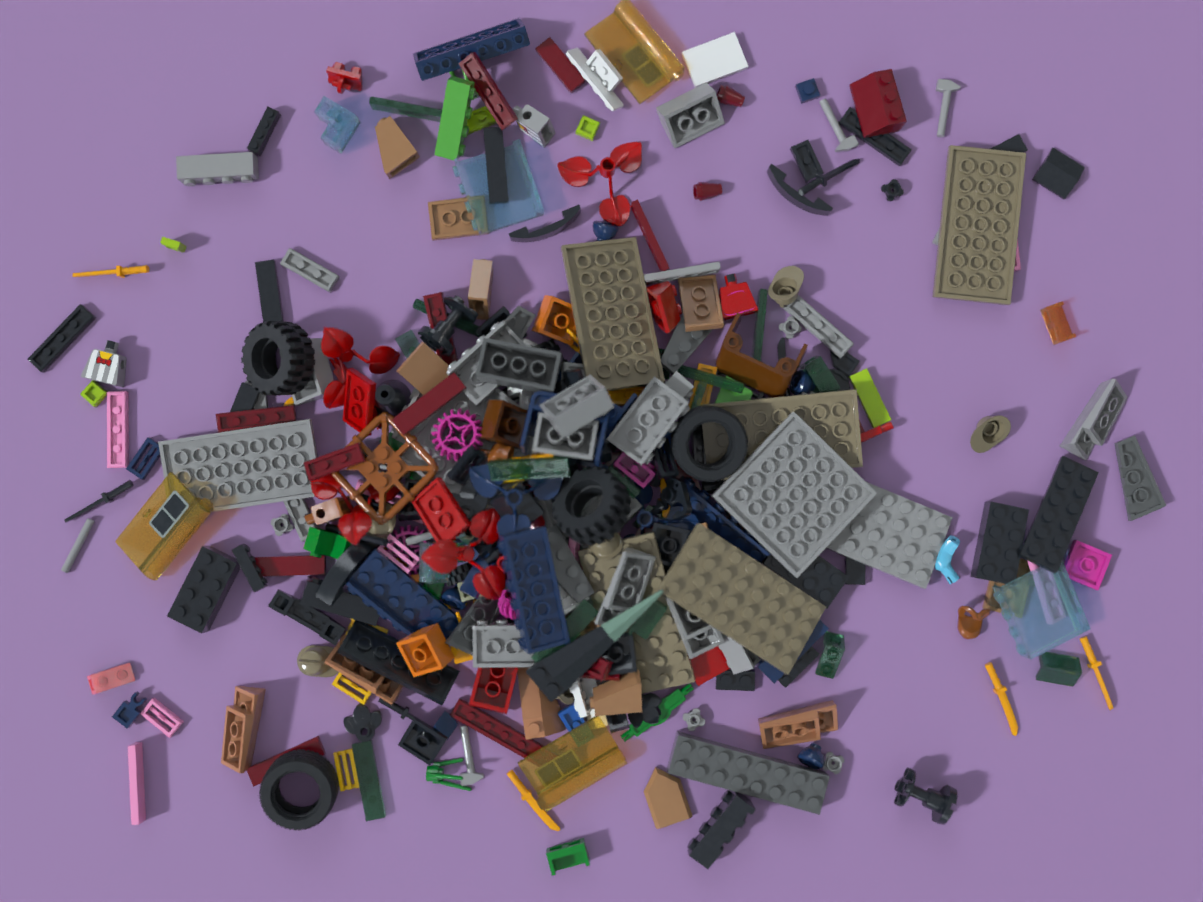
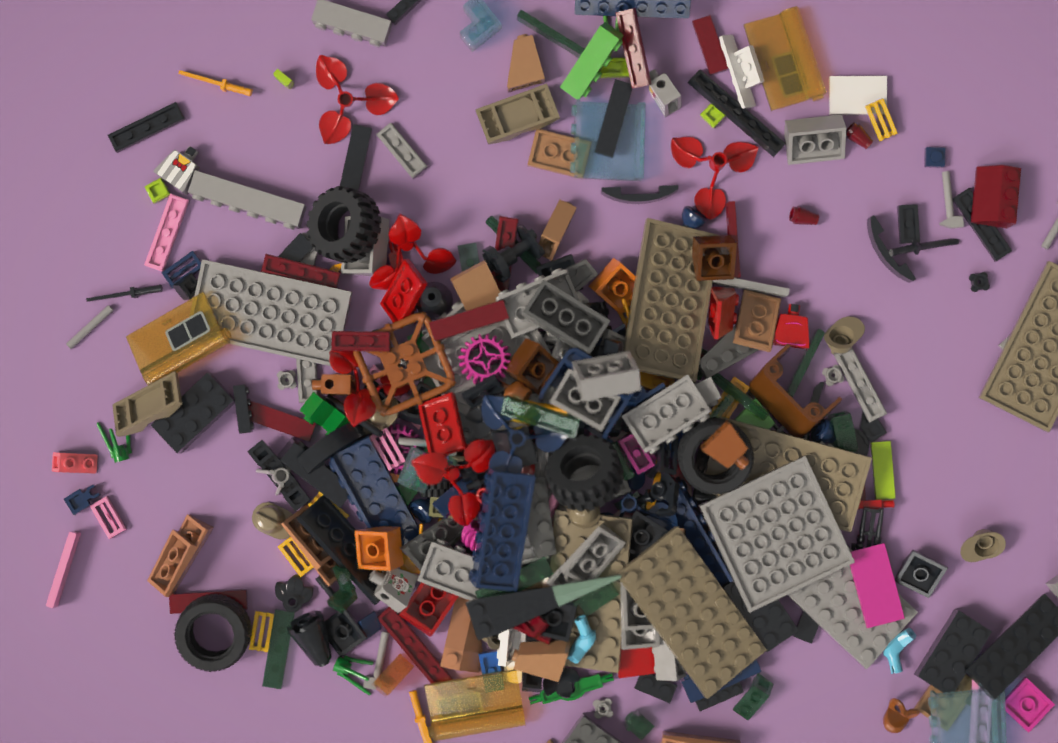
camera: 20 degrees right, 0 degrees up
(149, 652) = (119, 452): none -> green plant
(154, 473) = (186, 286): none -> black slope
(156, 599) = (147, 405): none -> dark tan slope
(180, 369) = (247, 199): none -> light grey brick
(240, 271) = (334, 126): none -> red plant
(305, 618) = (279, 476): none -> light grey plant
(395, 758) = (312, 637): none -> black cone
(405, 195) = (517, 114): none -> dark tan slope
(412, 705) = (346, 594): none -> clear green bracket
(454, 681) = (394, 587): none -> light grey torso
(484, 764) = (392, 675): none -> clear orange piece
(608, 118) = (732, 109): none -> black tile
(638, 258) = (714, 257): none -> reddish brown slope
(651, 666) = (583, 642): none -> medium azure arm
(716, 430) = (726, 447): none -> dark orange torso
(732, 722) = (638, 724): none -> clear green bracket
(755, 85) = (886, 134): none -> yellow tile
(884, 481) = (877, 535): none -> black piece
(905, 508) = (876, 586): none -> dark pink tile
(941, 480) = (920, 573): none -> black slope

